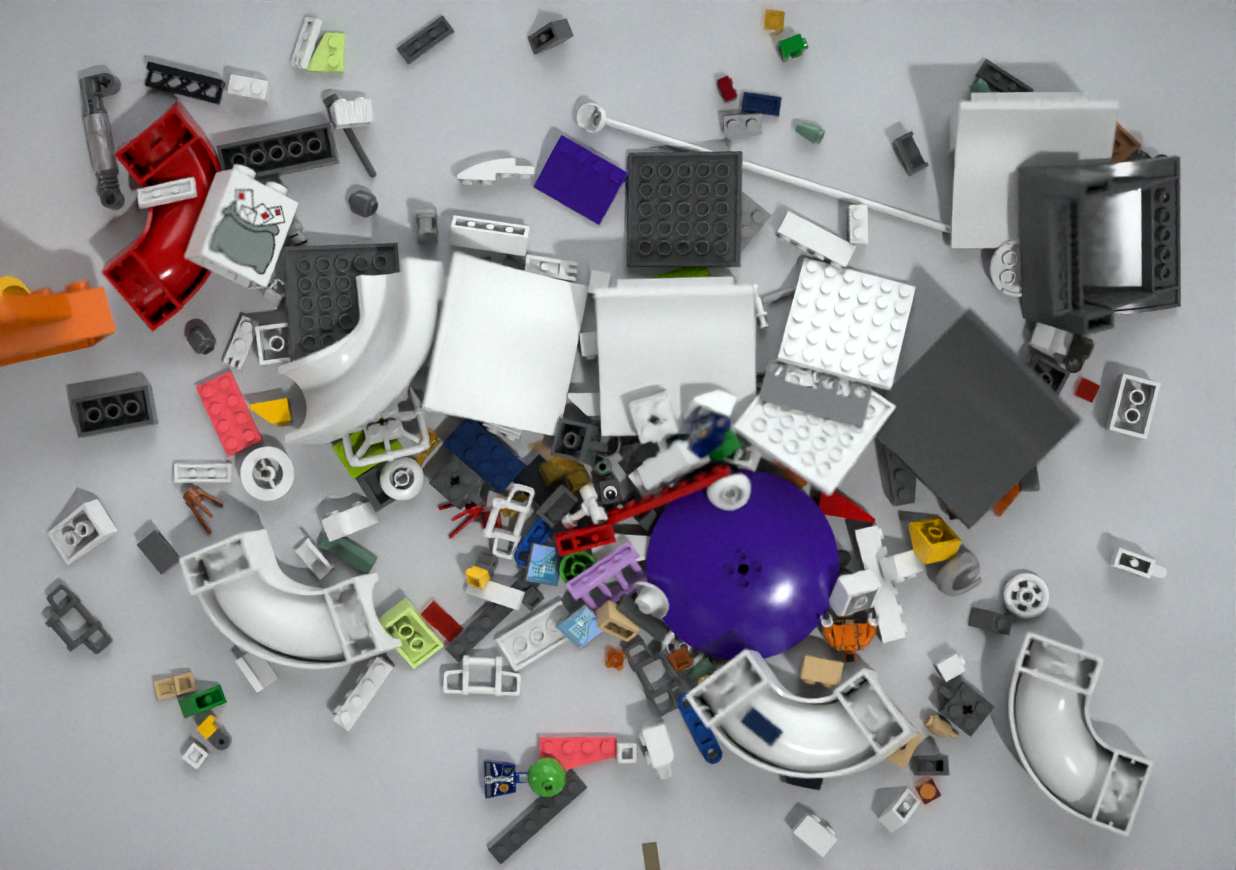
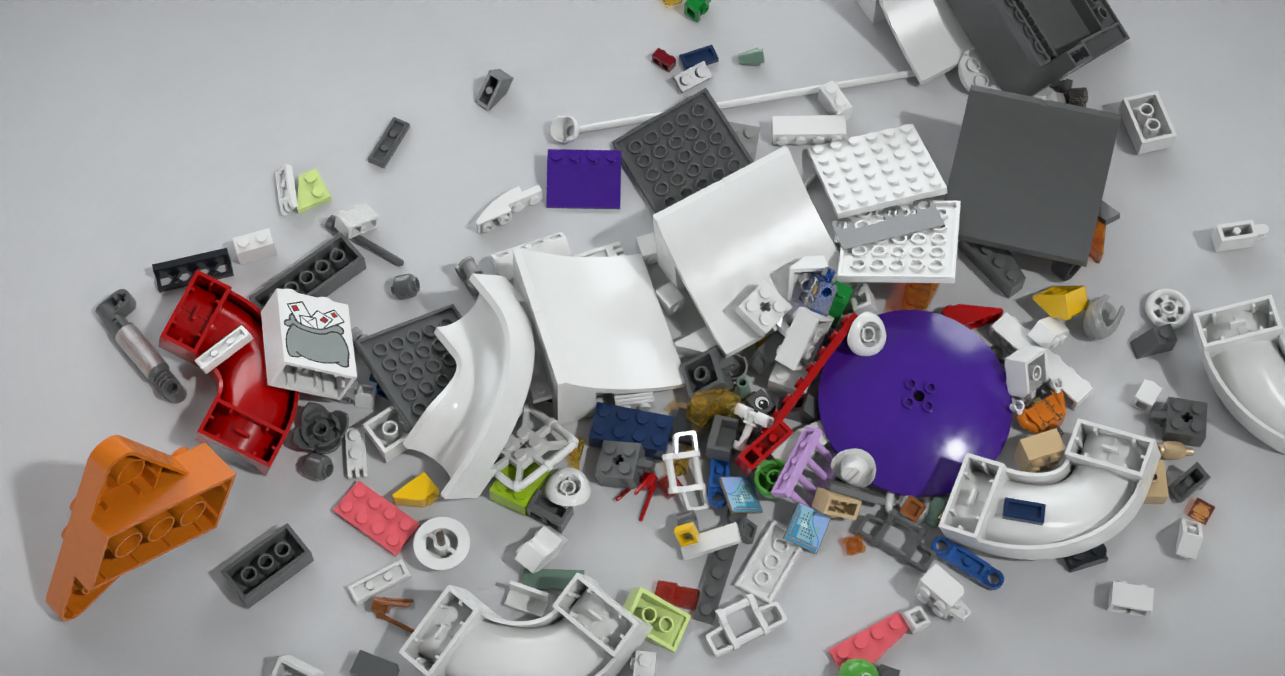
camera: 25 degrees left, 25 degrees down
(204, 308) = (317, 418): none -> dark grey brick
(910, 154) = (840, 35): dark grey panel -> none

